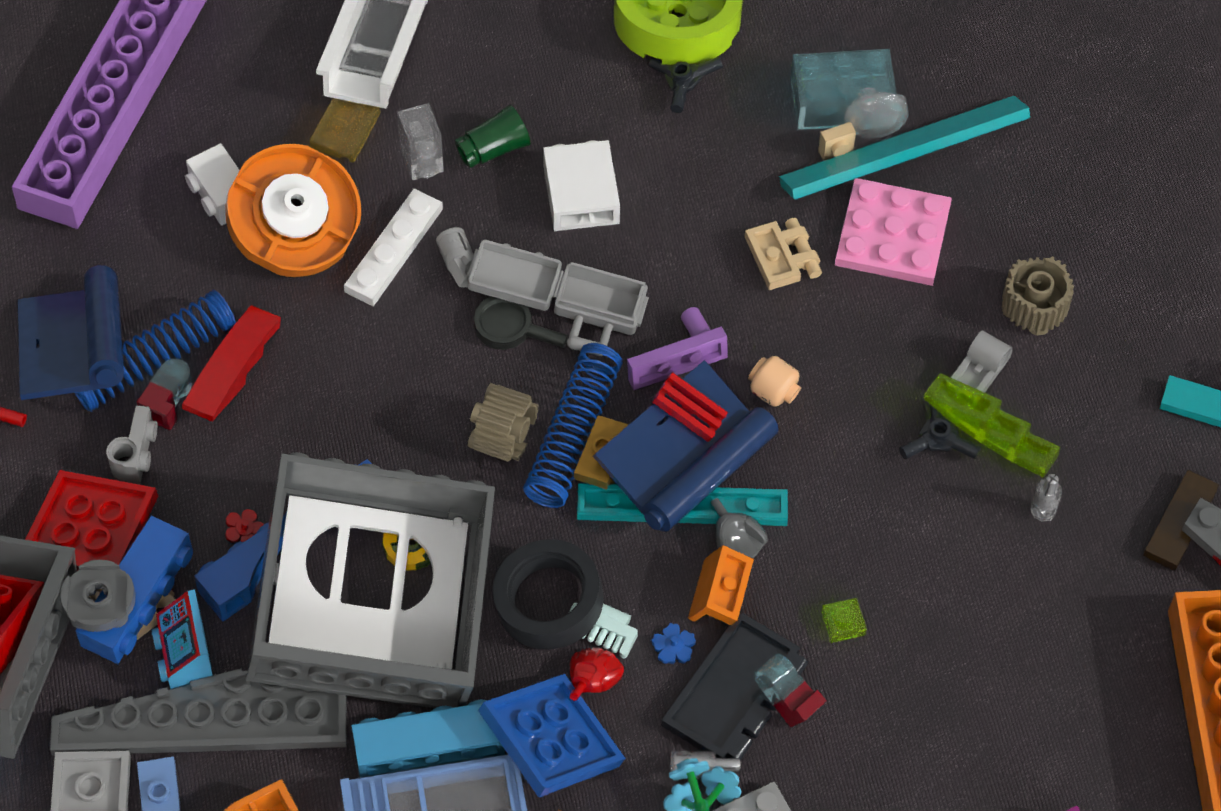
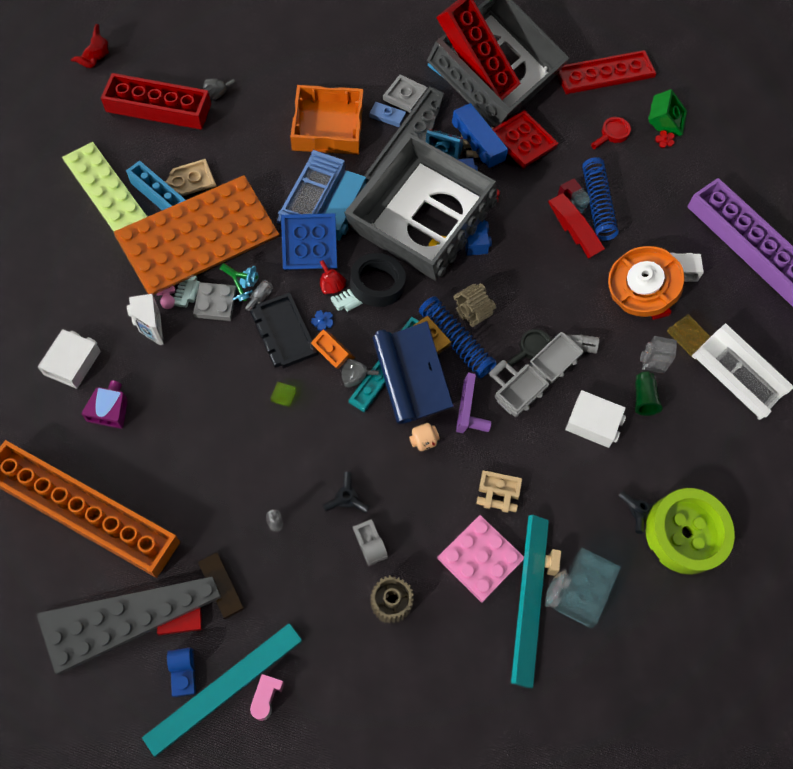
camera: 120 degrees right, 5 degrees up
(76, 338) = (621, 166): dark blue door -> none
(101, 615) = (478, 119): dark grey plate -> none
(135, 446) = (549, 169): light grey plate -> none
(393, 247) = (606, 322): white plate -> none
(692, 402) = (426, 375): red tile -> none
(788, 690) = (262, 343): leg -> none
(984, 421) = (333, 524): clear neon green slope -> none

